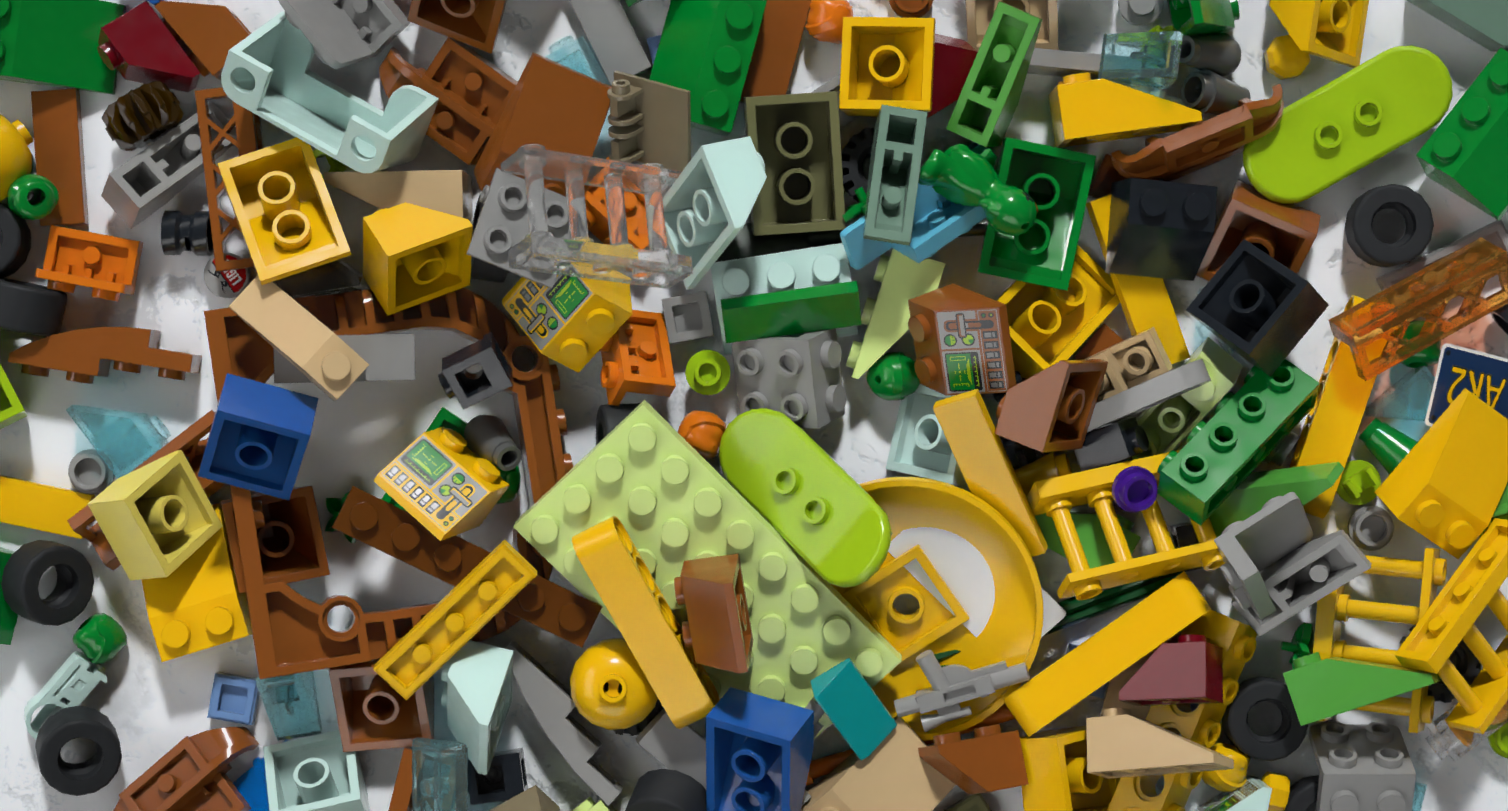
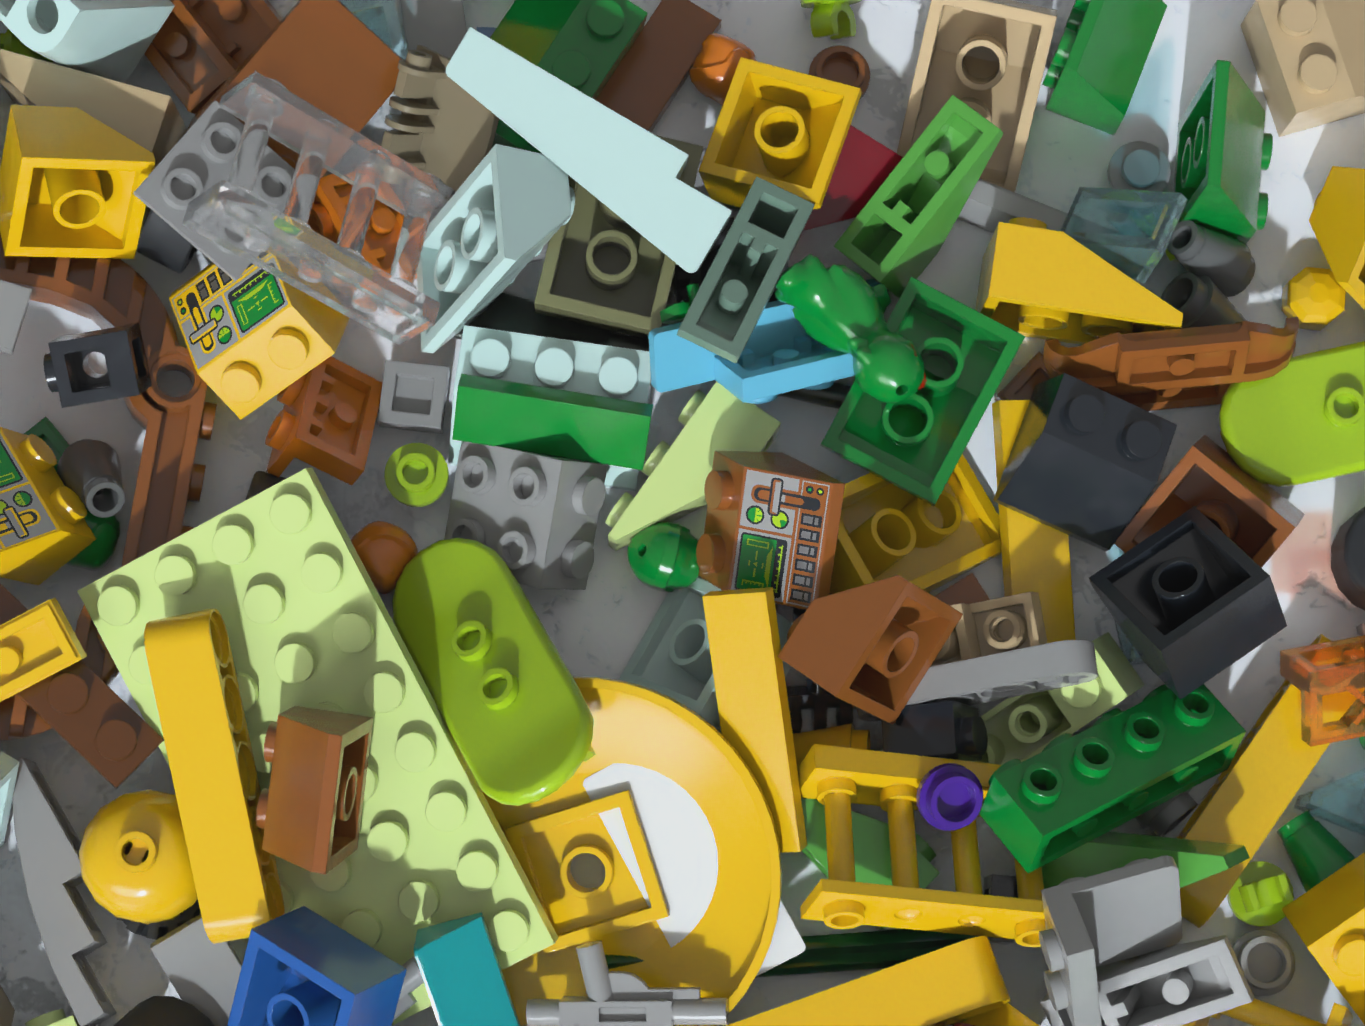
camera: 15 degrees right, 10 degrees down
(767, 122) = (596, 147): none -> light aqua wedge

